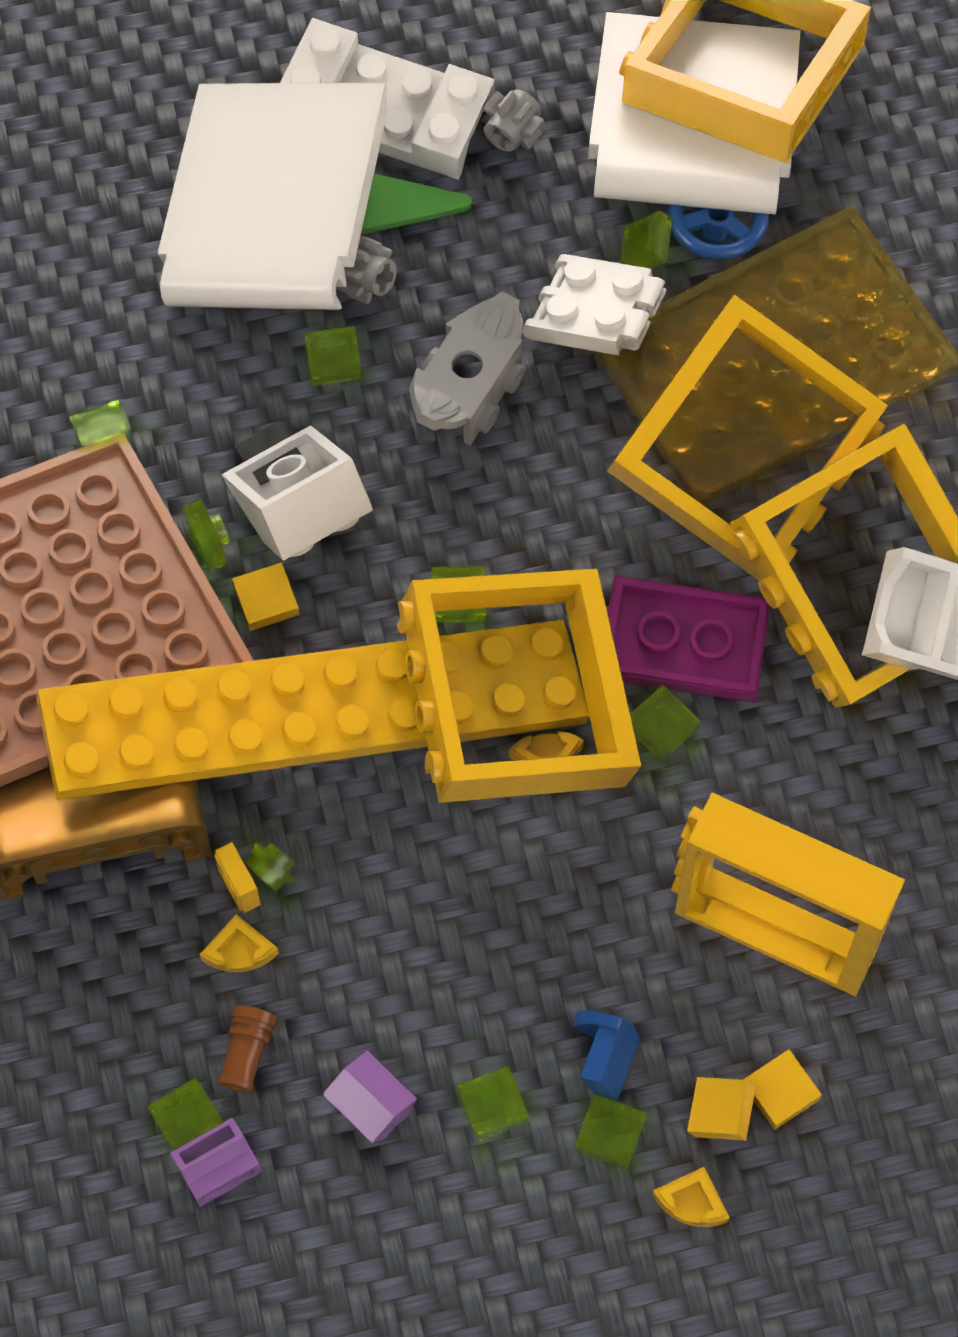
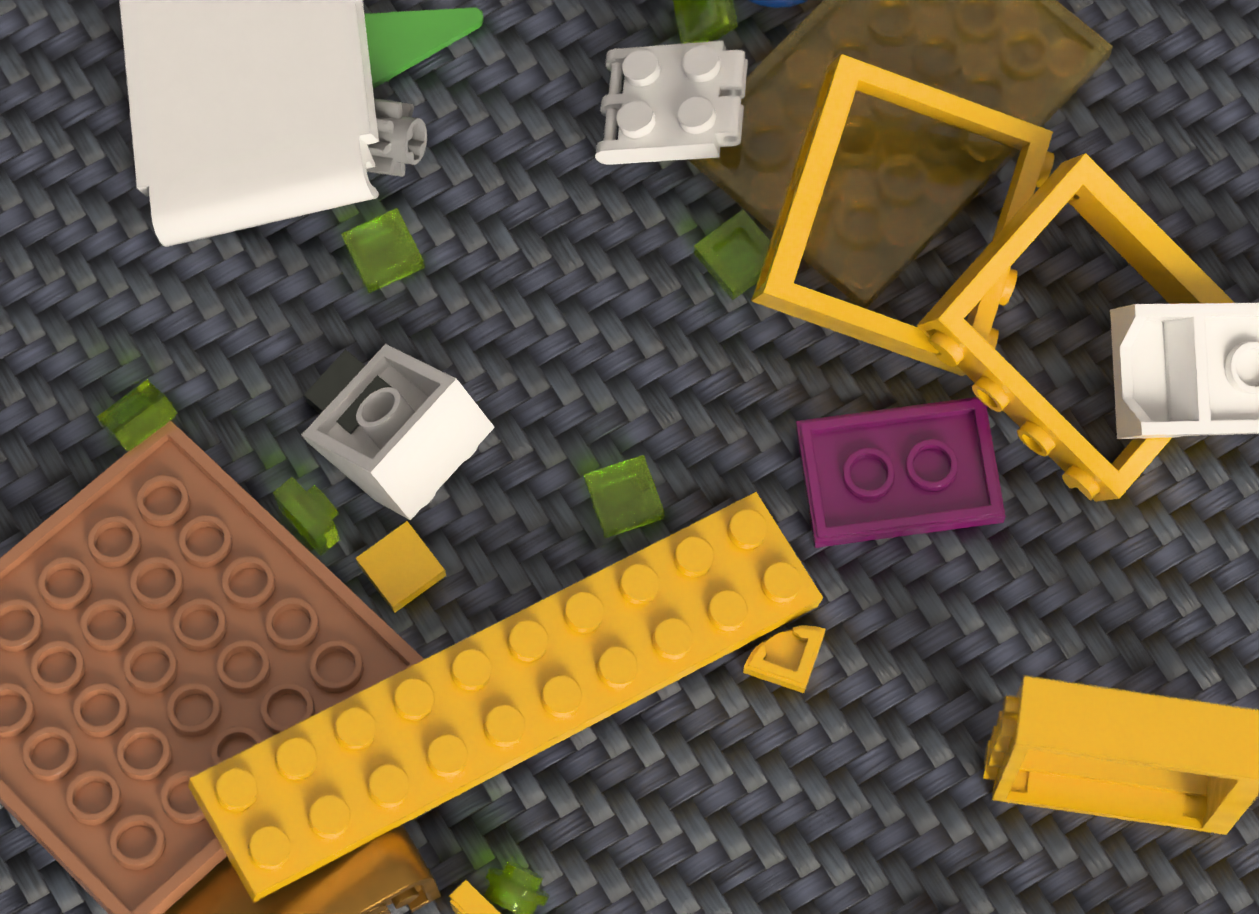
camera: 15 degrees left, 5 degrees up
(449, 401) = (562, 175): light grey piece -> none
(599, 672) = (821, 547): yellow window -> none
(606, 433) = (734, 253): none -> clear neon green plate
(663, 723) = (907, 580): clear neon green tile -> none

